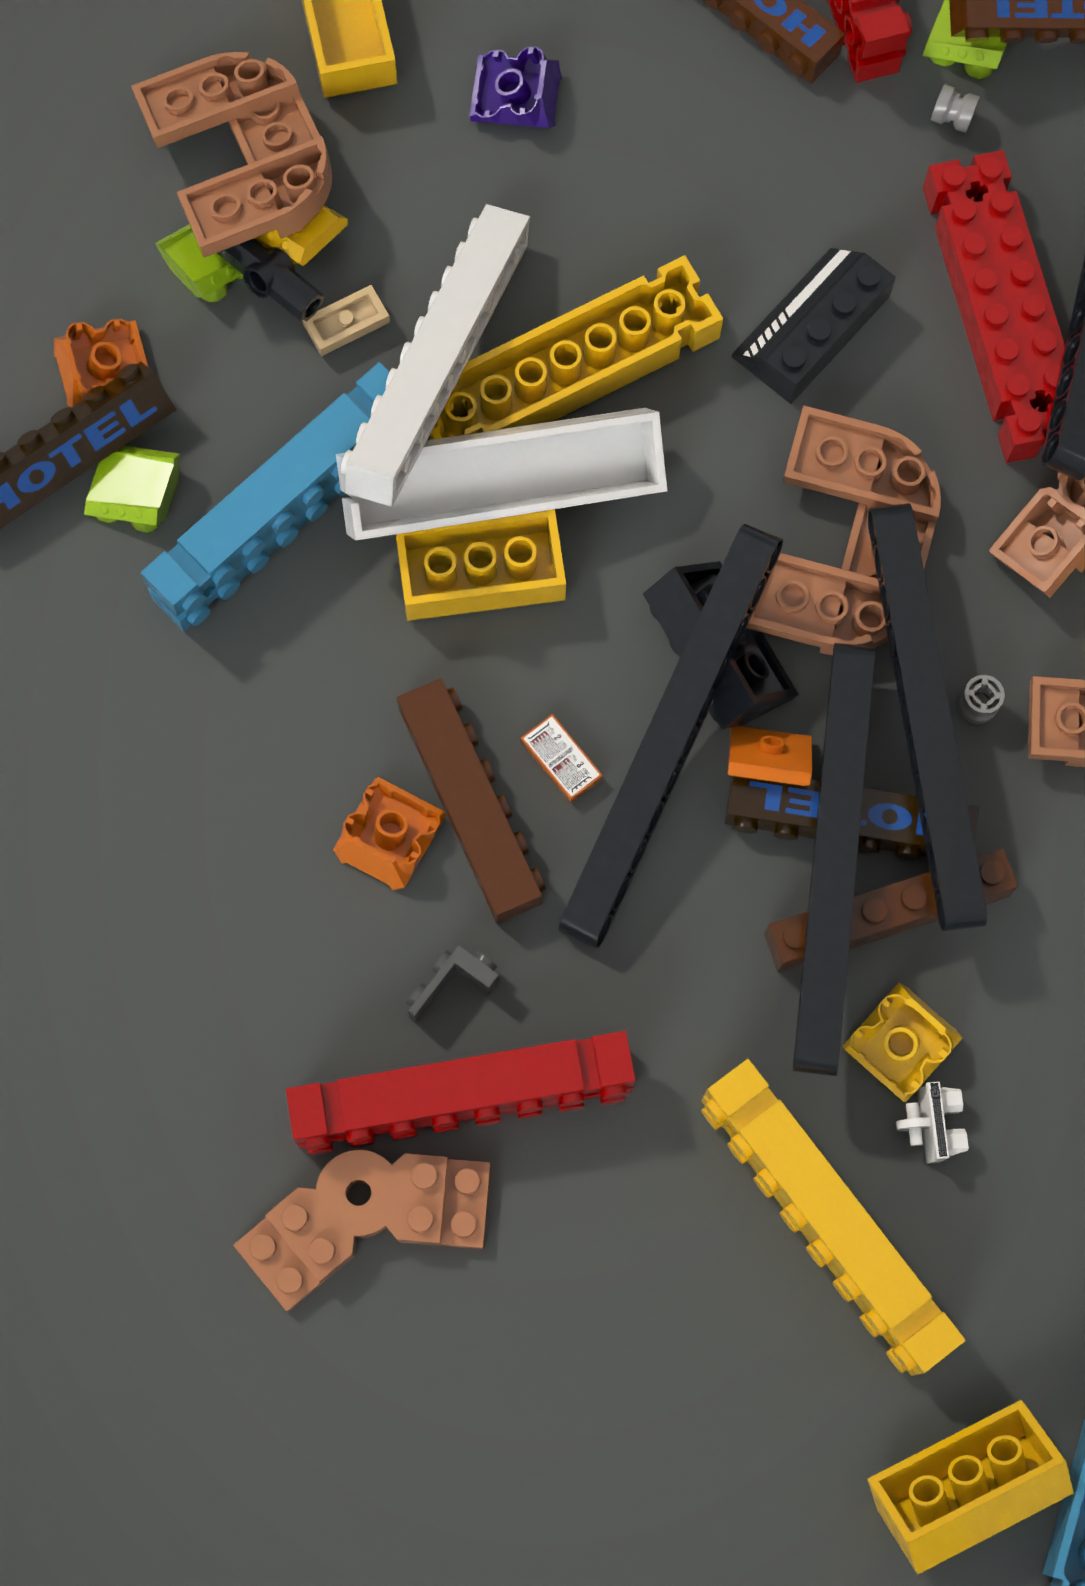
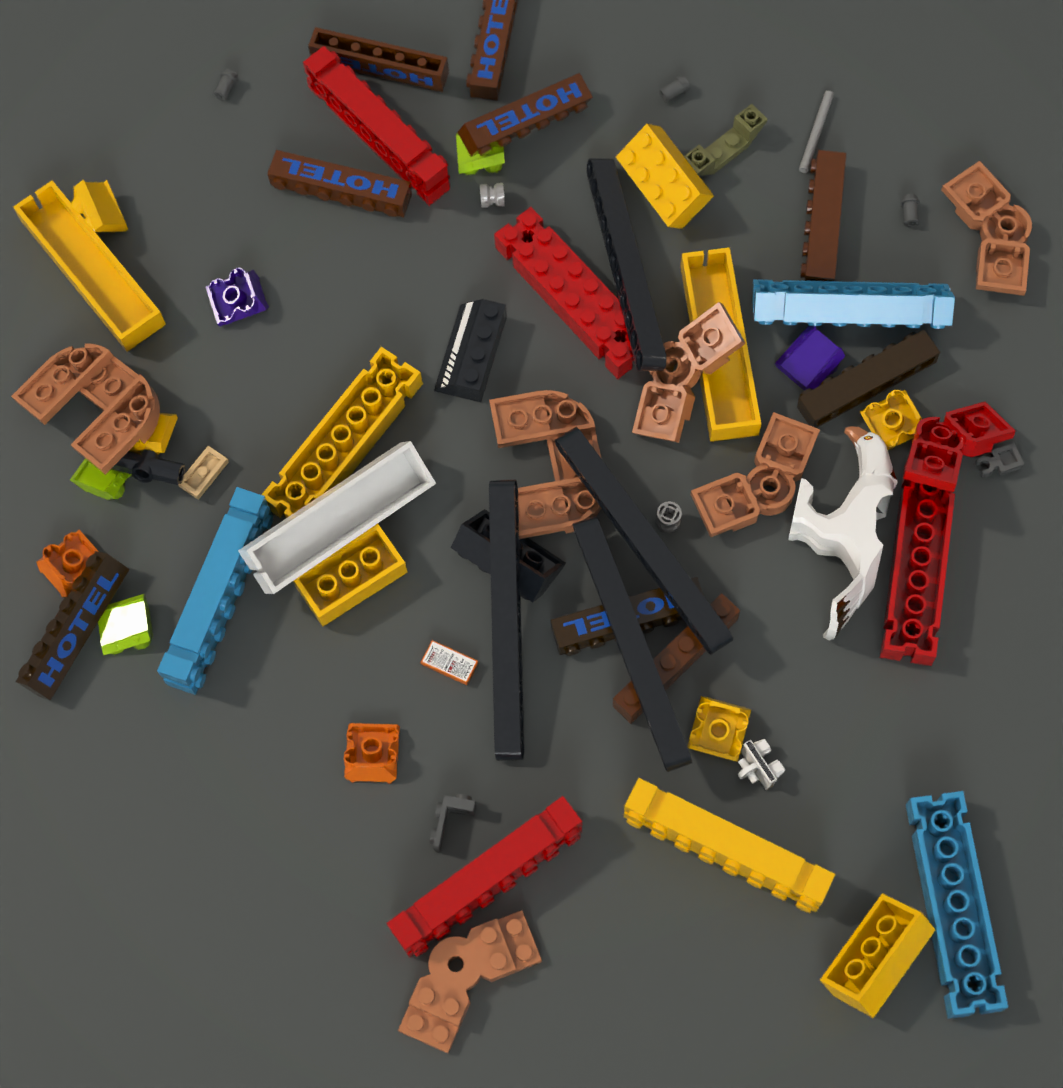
camera: 20 degrees left, 5 degrees down
(435, 357) = (269, 468): white brick -> none
(469, 800) = (409, 711): reddish brown brick -> none
(770, 755) = (567, 604): orange plate -> none

